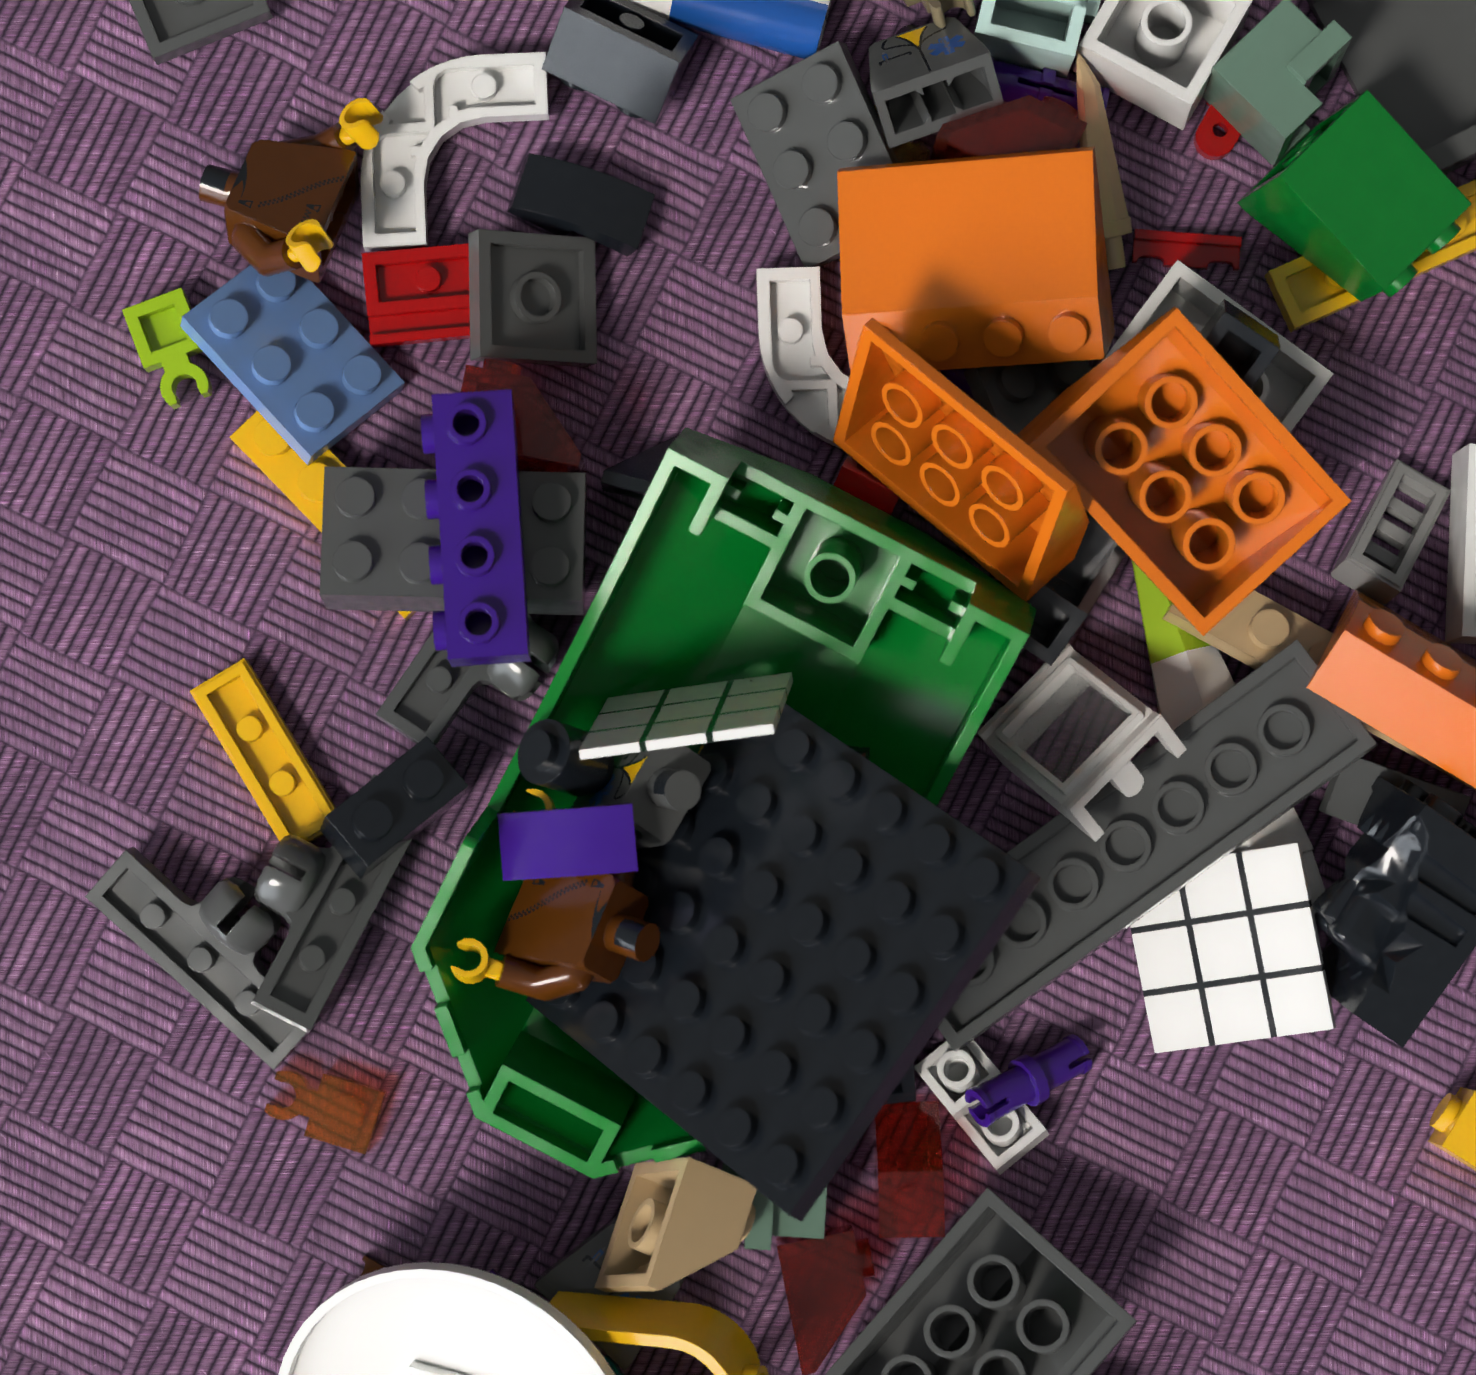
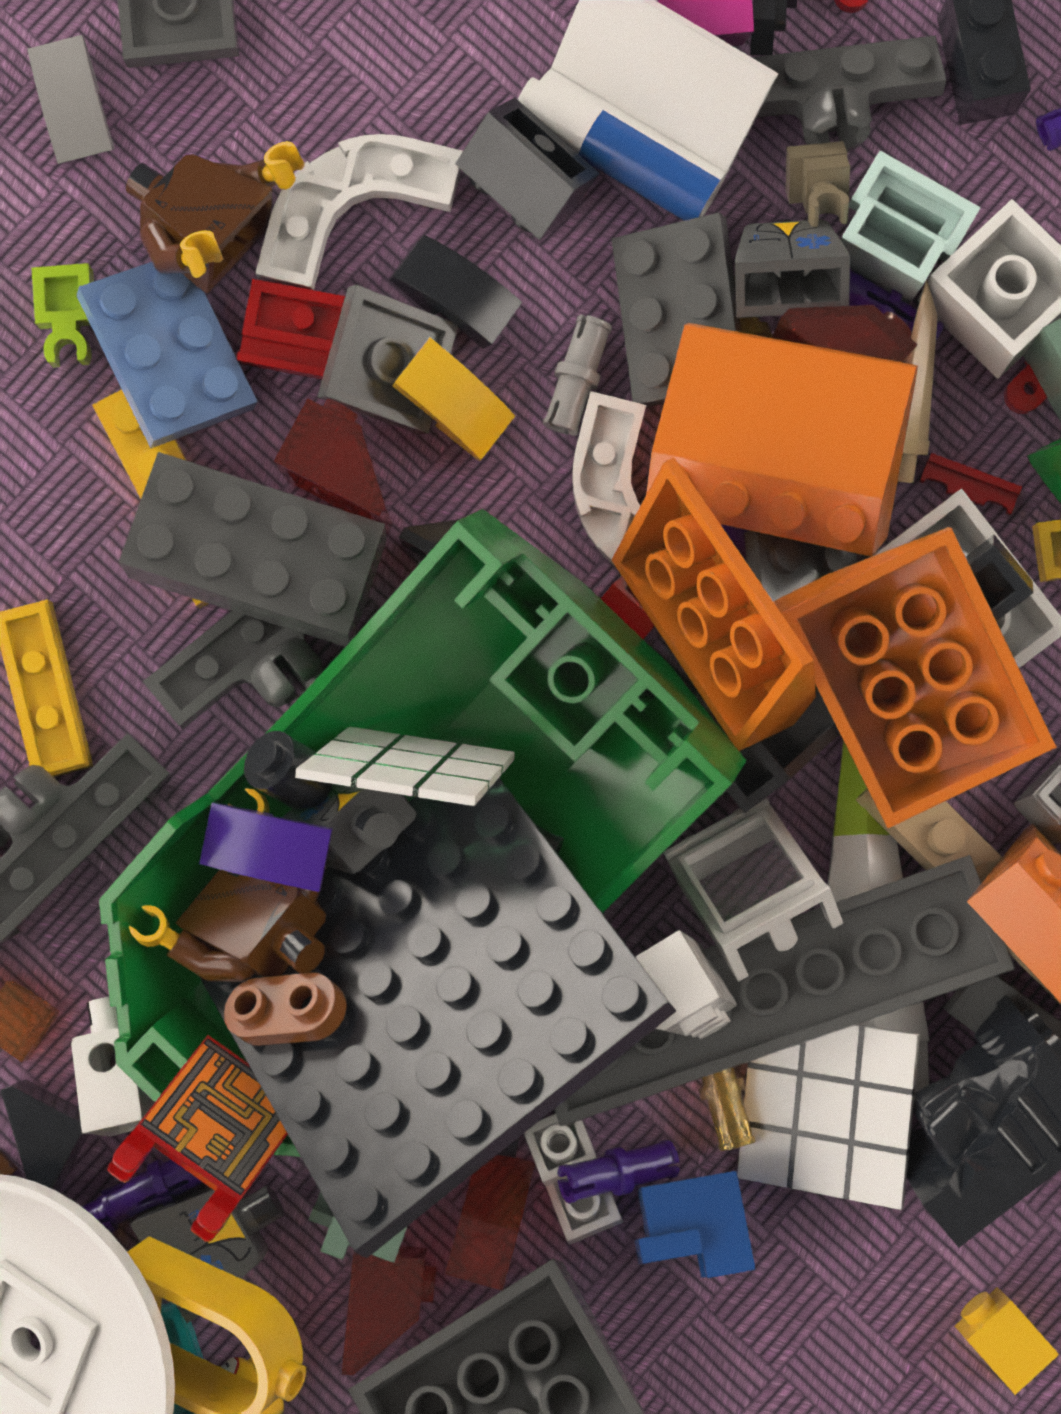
camera: 20 degrees right, 0 degrees up
(107, 117) = (70, 99): none -> light grey slope
(393, 807) = (132, 767): black brick -> none
(413, 1215) = (44, 1131): none -> black slope
(479, 528) = (272, 544): dark purple brick -> none
(479, 1159) = (106, 1096): none -> white torso
(553, 1235) = (156, 1186): none -> dark purple pin
(600, 1143) = (211, 1125): none -> flag
(615, 319) = (454, 399): none -> yellow slope
(631, 1007) = (278, 1009): none -> dark orange plate
(675, 1223) = (273, 1222): tan slope -> none
(737, 255) = (577, 375): none -> light grey pin
(1050, 854) = (690, 984): none -> white slope
(1123, 982) = (727, 1109): none -> clear yellow pin
(1125, 1105) = (698, 1219): none -> blue plate

